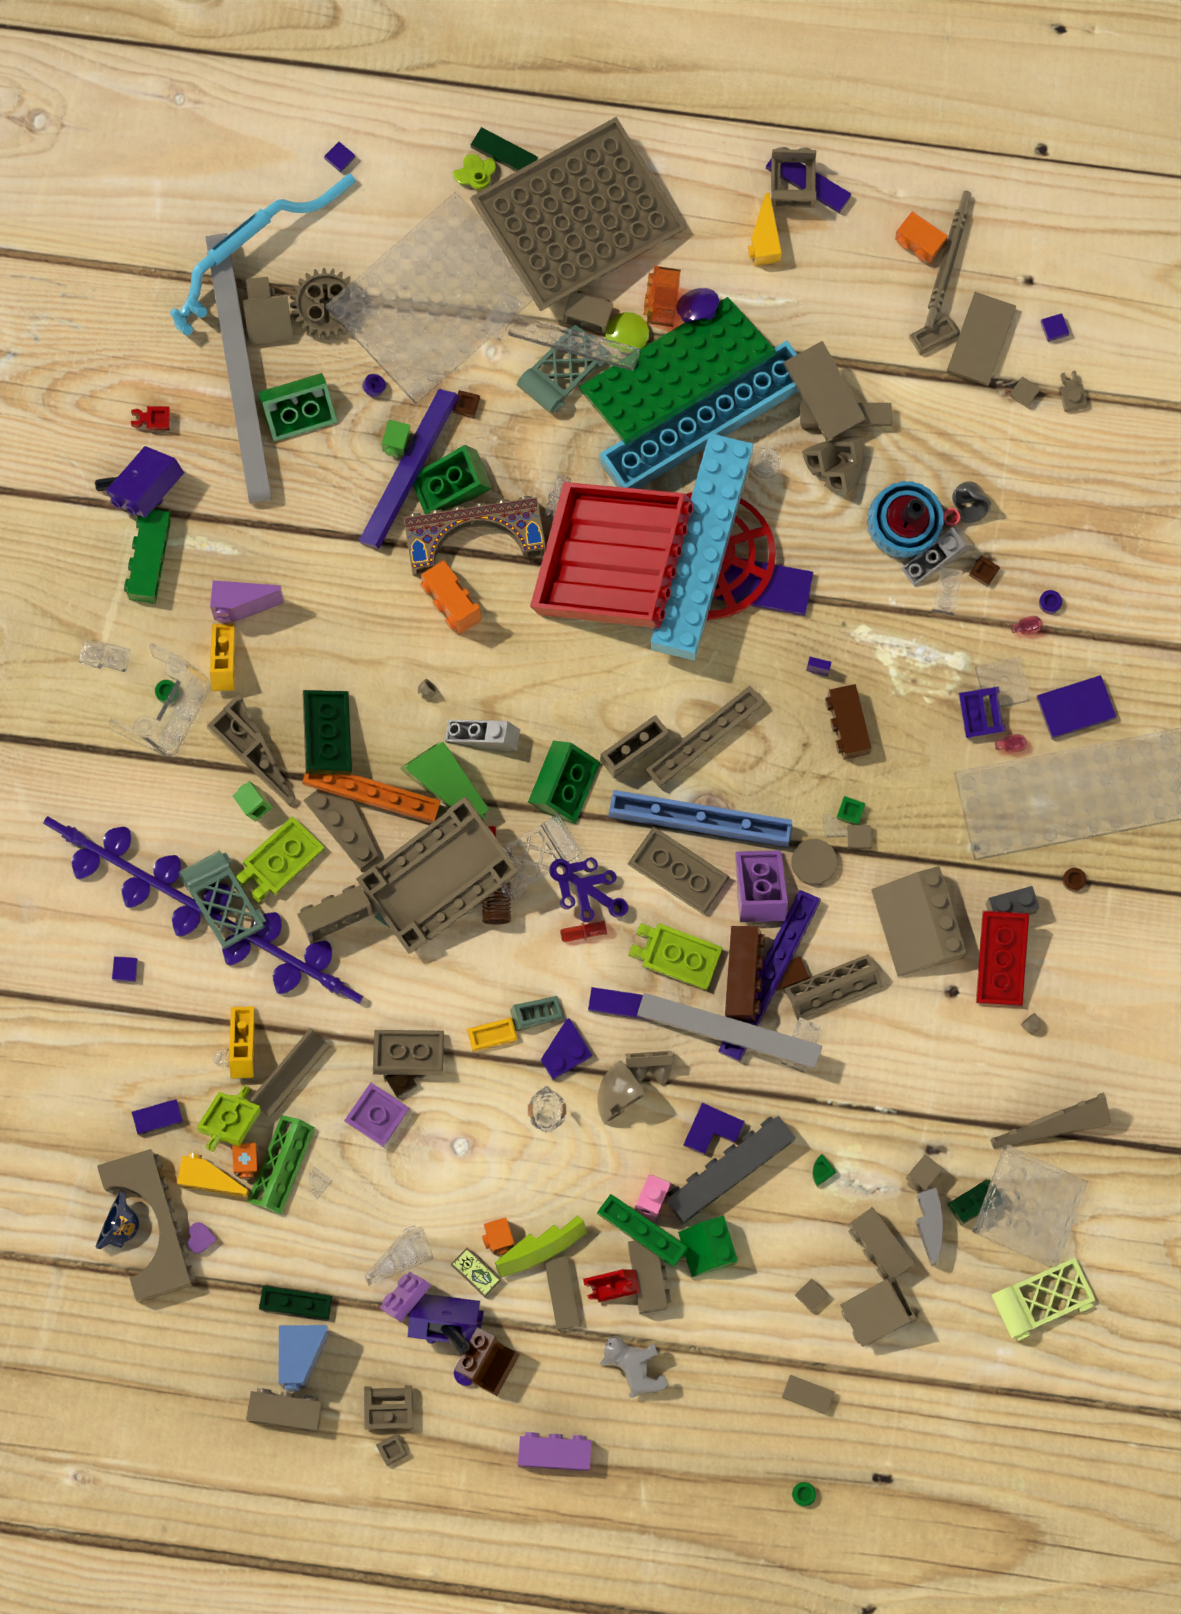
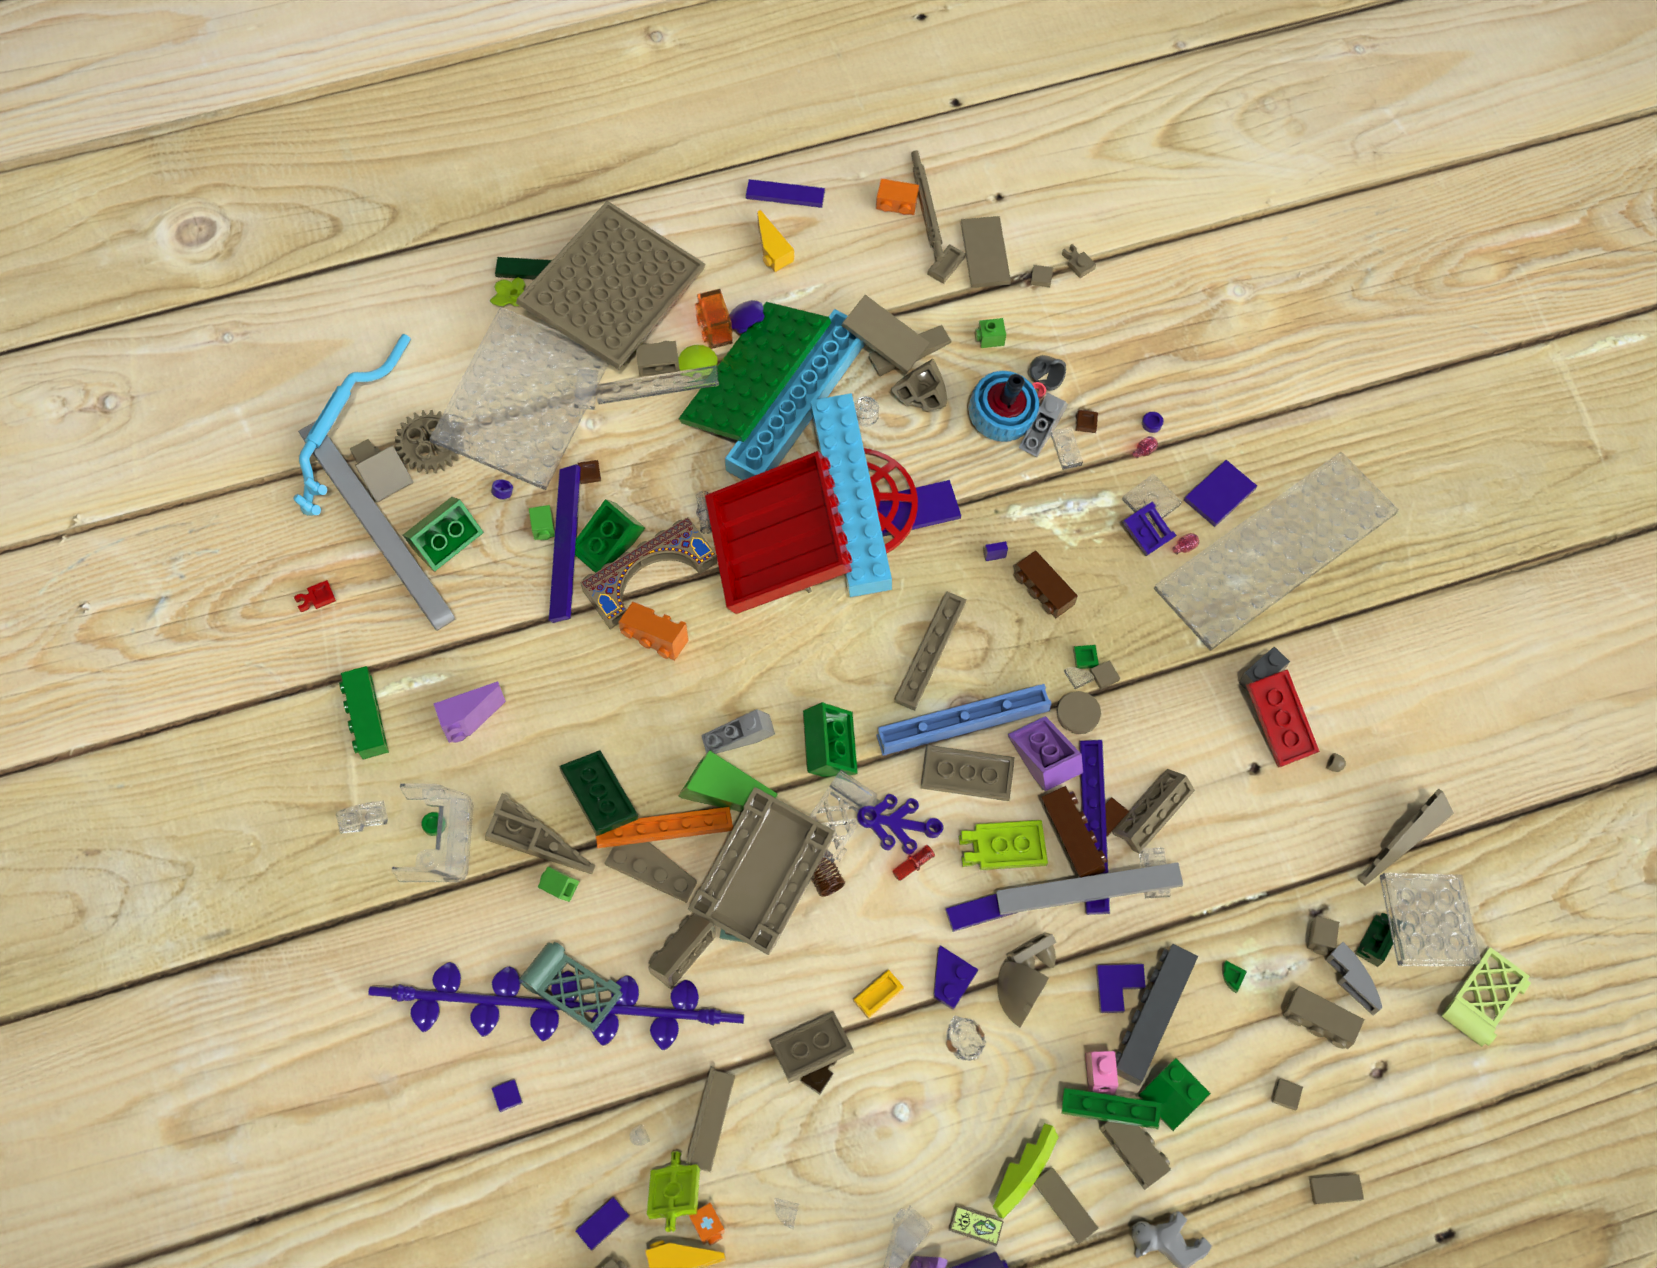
camera: 25 degrees left, 10 degrees down
(142, 482) = (330, 651): dark purple piece -> none
(222, 657) = (472, 770): yellow slope -> none
(242, 1042) = (651, 1112): yellow slope -> none
(280, 859) = (607, 925): lime tile -> none
(284, 1165) = (747, 1211): bright green fence -> none
(339, 157) = (387, 326): dark purple tile -> none
(376, 1114) = (810, 1119): medium lavender plate -> none
(427, 688) = (670, 716): dark tan hinge -> none
(498, 1236) = (981, 1180): orange brick -> none
(528, 1023) = (897, 964): sand green slope -> none
(544, 389) = (649, 430): sand green piece -> none
(613, 1285) = (1111, 1174): red hinge -> none
(634, 746) = (876, 683): dark tan brick -> none
(793, 198) = (781, 206): dark tan window -> none
(877, 1311) = (1357, 1080): dark tan brick -> none
(919, 921) = (1195, 721): dark tan slope -> none
(936, 433) = (991, 333): none -> bright green brick
(1054, 327) = (1037, 220): dark purple tile -> none
(1074, 879) = (1299, 629): reddish brown tile -> none

